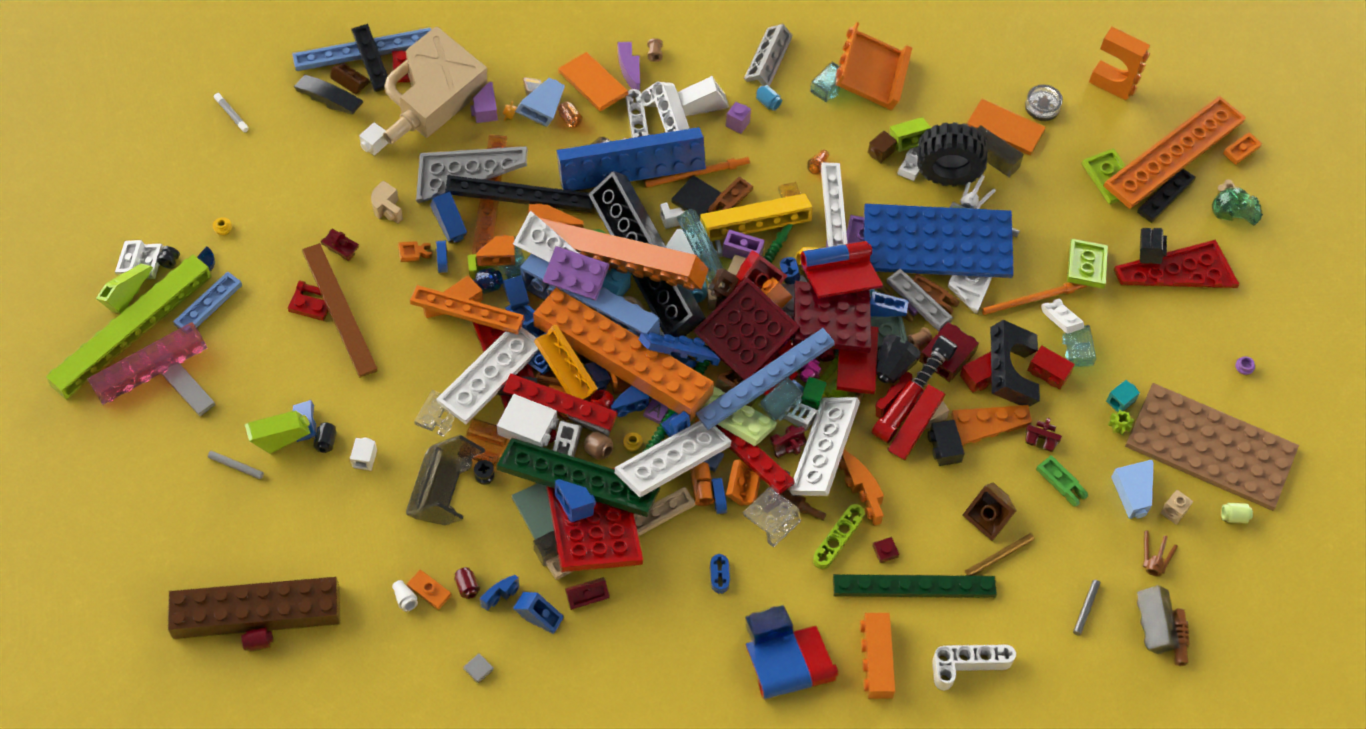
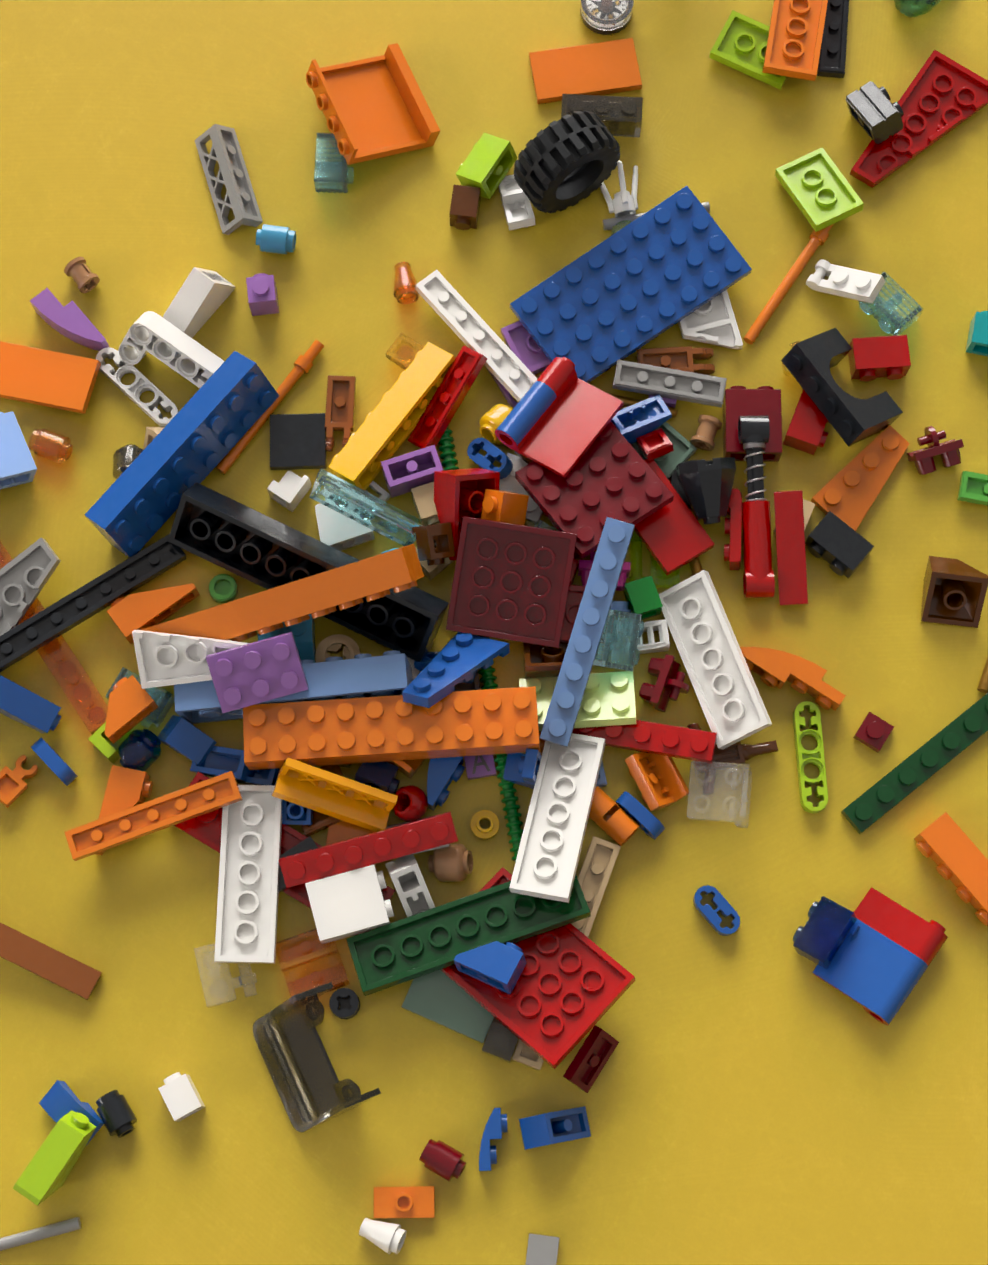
camera: 35 degrees left, 15 degrees up
(793, 226) = (447, 398): none -> red tile
(885, 322) = (654, 444): none -> red tile

